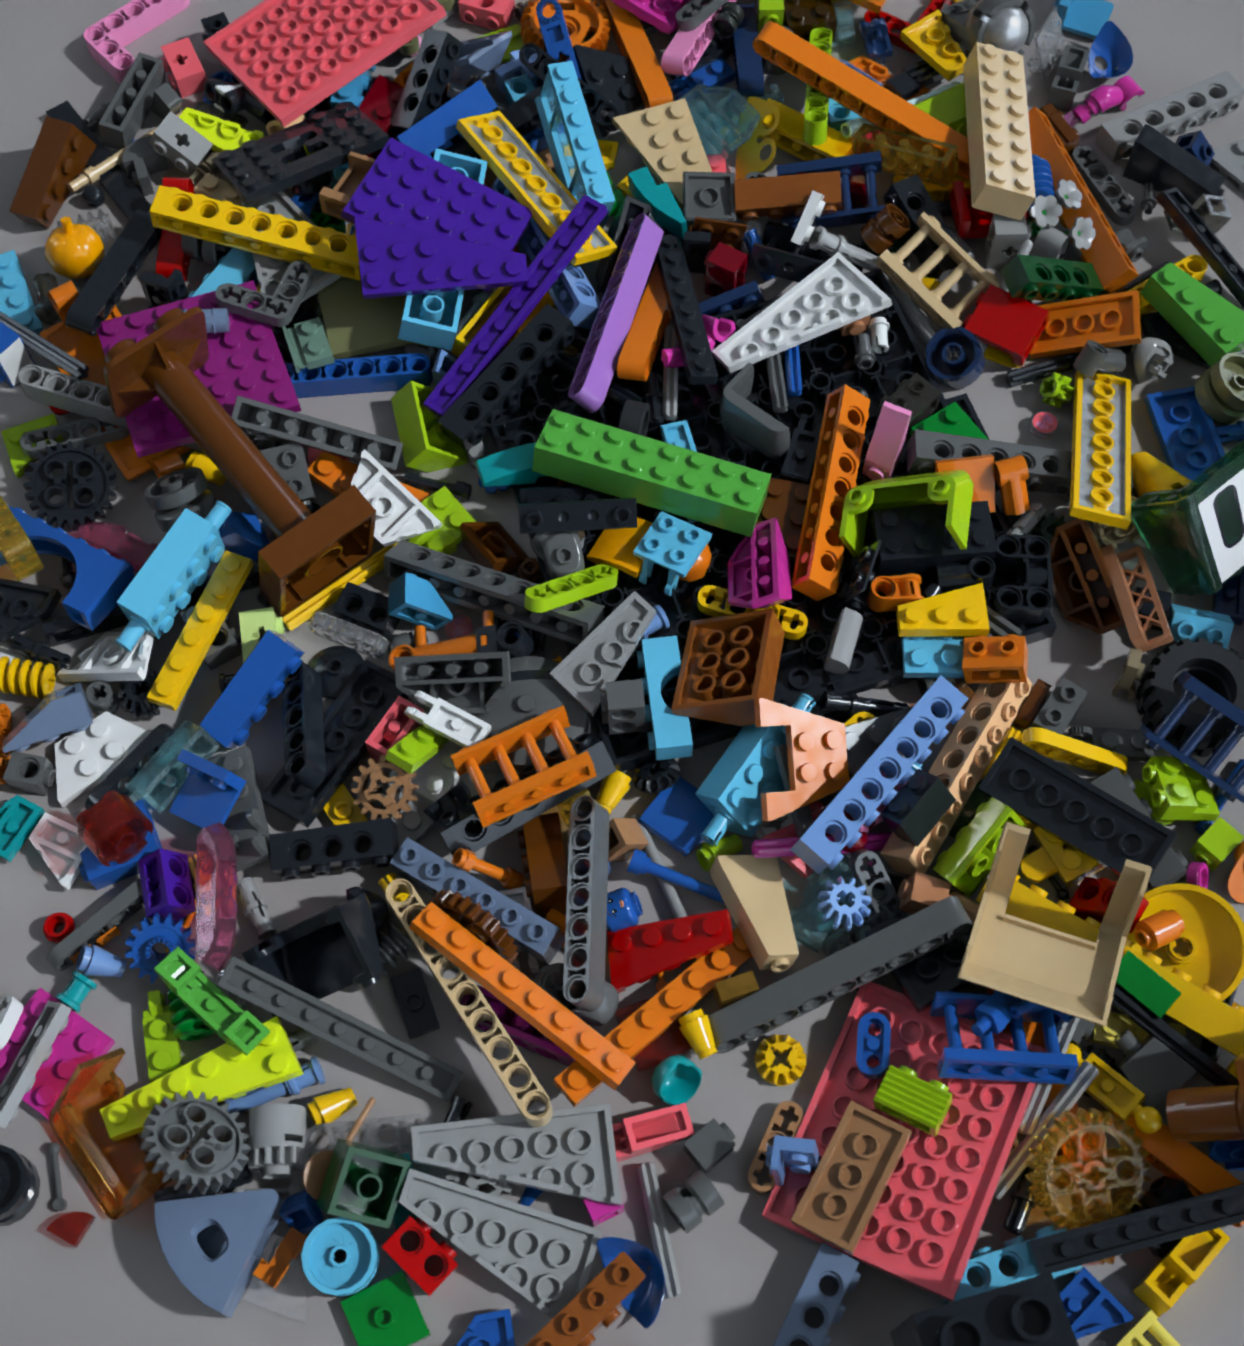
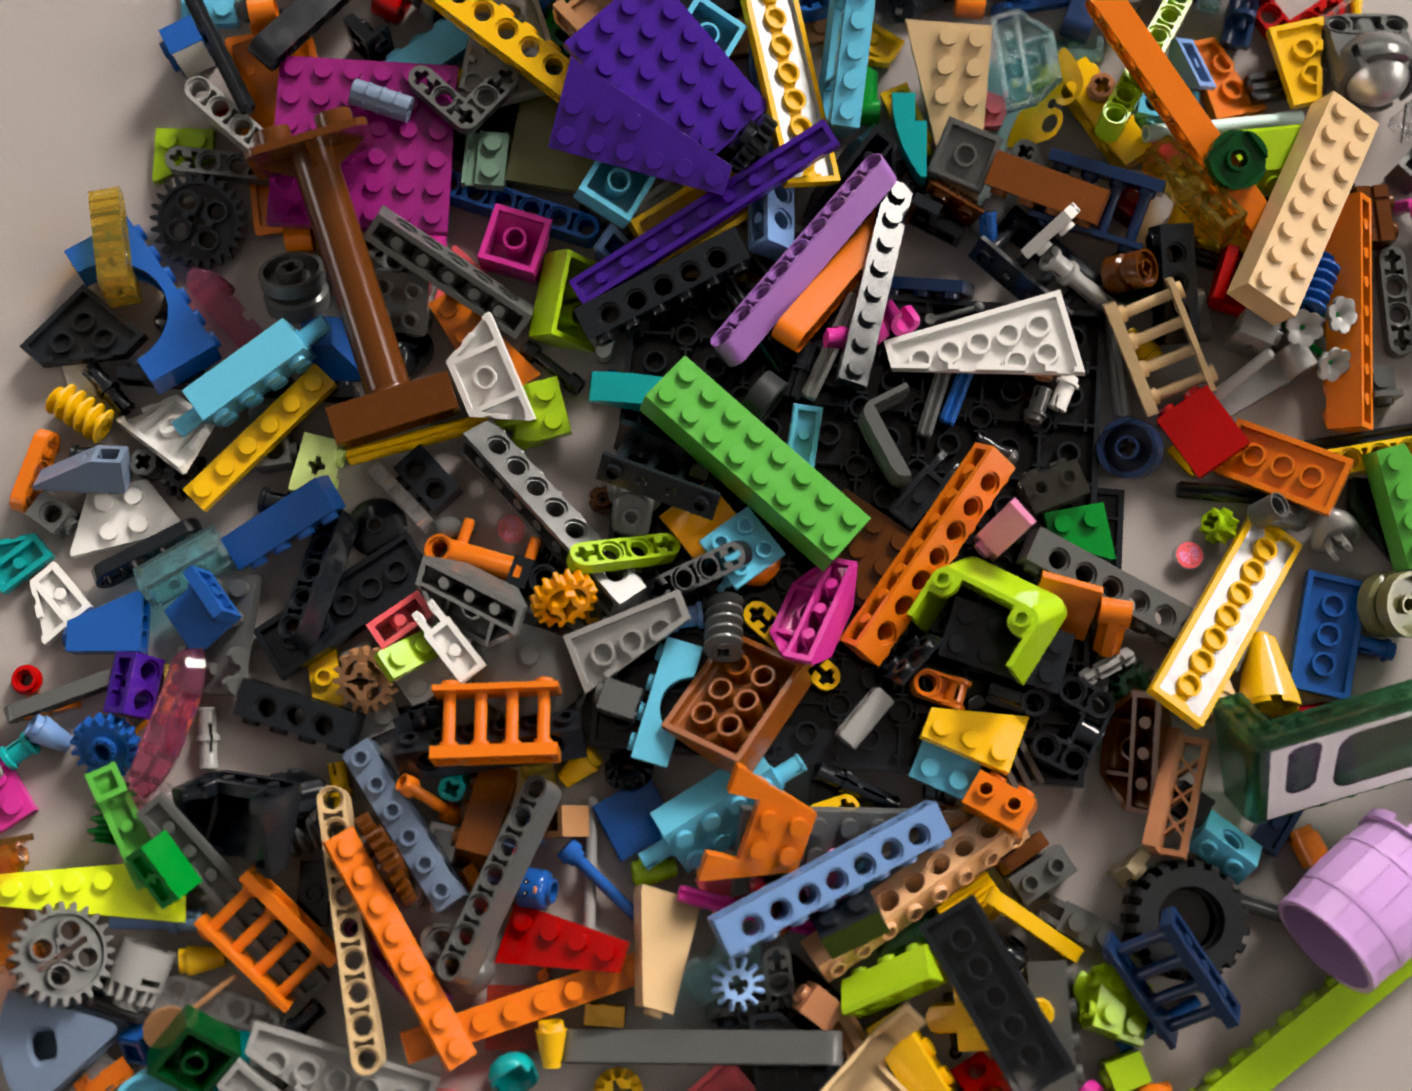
camera: 20 degrees right, 15 degrees up
(114, 828) = (100, 618): clear red brick -> none
(161, 1047) = (74, 842): lime hinge -> none
(264, 1023) = (163, 869): none -> green hinge
(363, 398) = (515, 243): none -> dark pink slope
(387, 1018) = (277, 907): none -> orange fence
(417, 602) = (476, 494): dark azure slope -> none
(492, 546) = (577, 461): reddish brown slope -> none
(503, 857) = (453, 787): none -> teal bush
(533, 236) = (751, 142): none -> black gear
(536, 639) = (563, 598): none -> light orange gear
(641, 572) = (697, 569): none -> black beam
(687, 614) = (723, 627): none -> dark grey piece
(724, 269) = (941, 250): dark red brick -> none
(793, 106) = (1098, 78): none -> nougat bush
(902, 85) = (1237, 96): black tile -> none
(923, 124) = (1219, 159): none -> dark green plate
(1050, 279) = (1273, 405): dark green brick -> none

